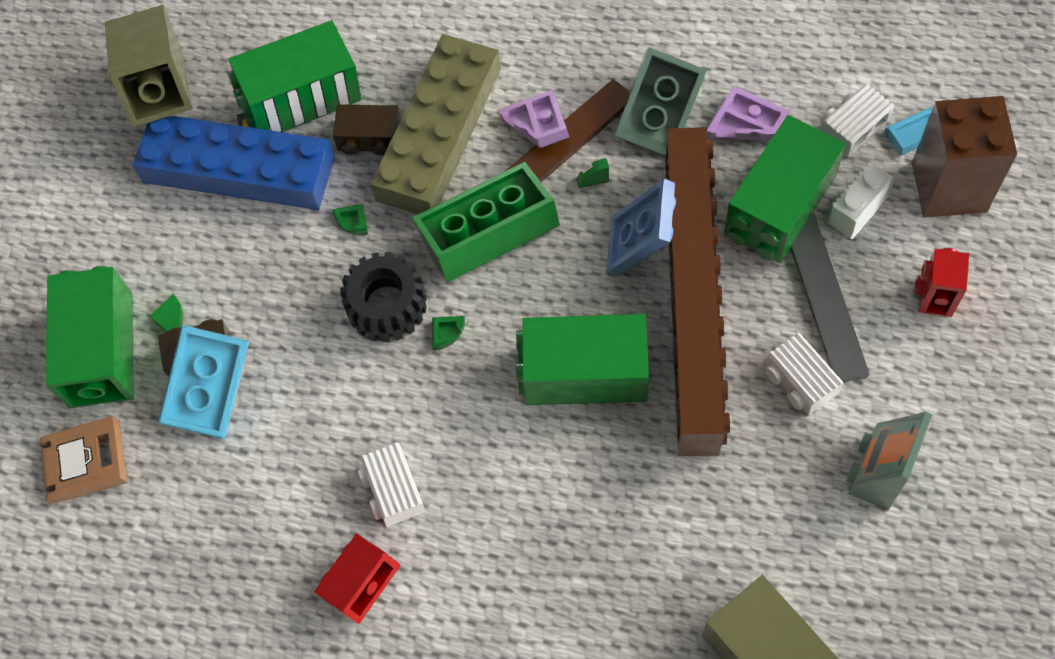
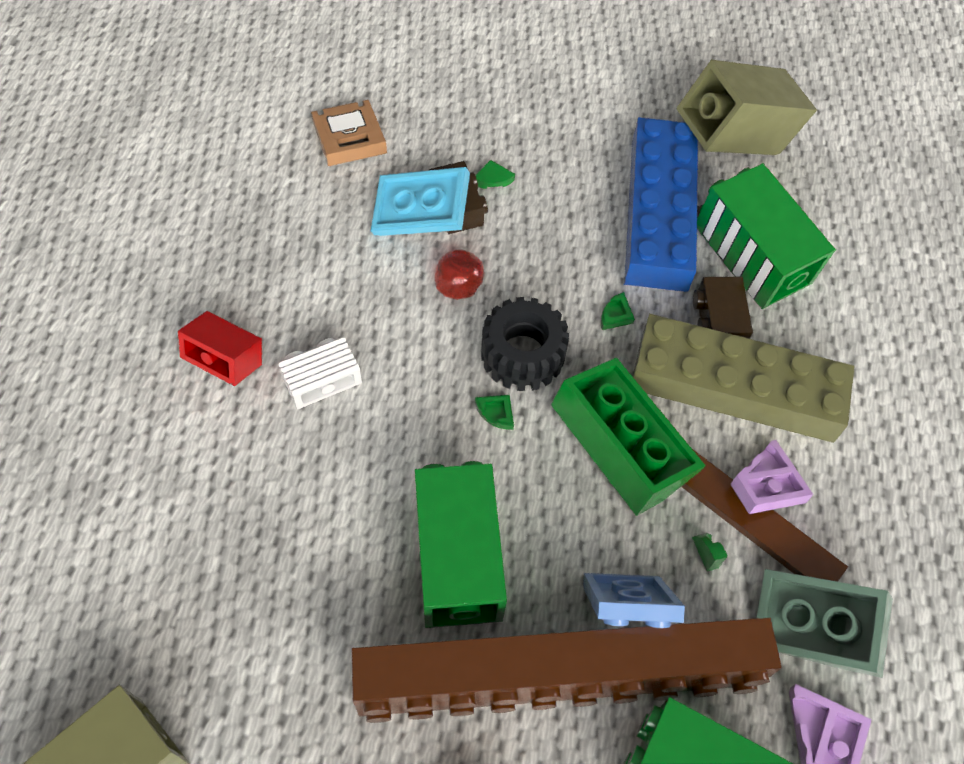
camera: 75 degrees right, 5 degrees down
(89, 337) = (459, 112): green brick -> none
(290, 355) = (459, 274): none -> clear red hair

